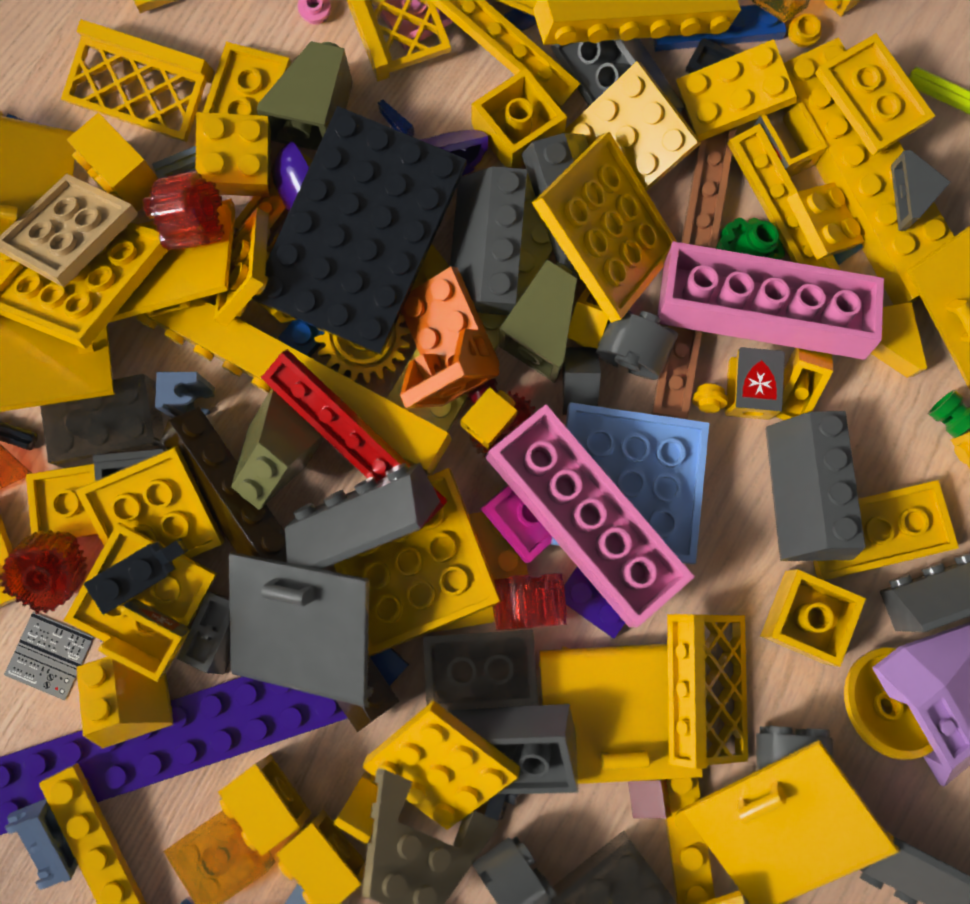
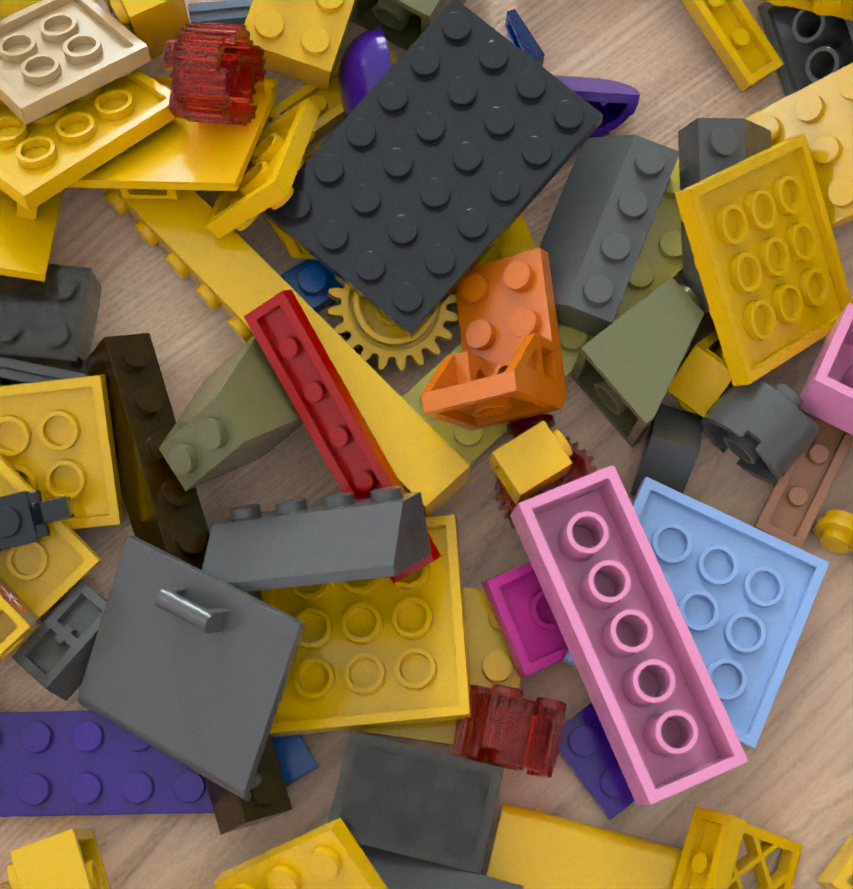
camera: 15 degrees right, 5 degrees down
(179, 390) = (130, 304): sand blue hinge -> none
(517, 116) = (685, 80): yellow brick -> none

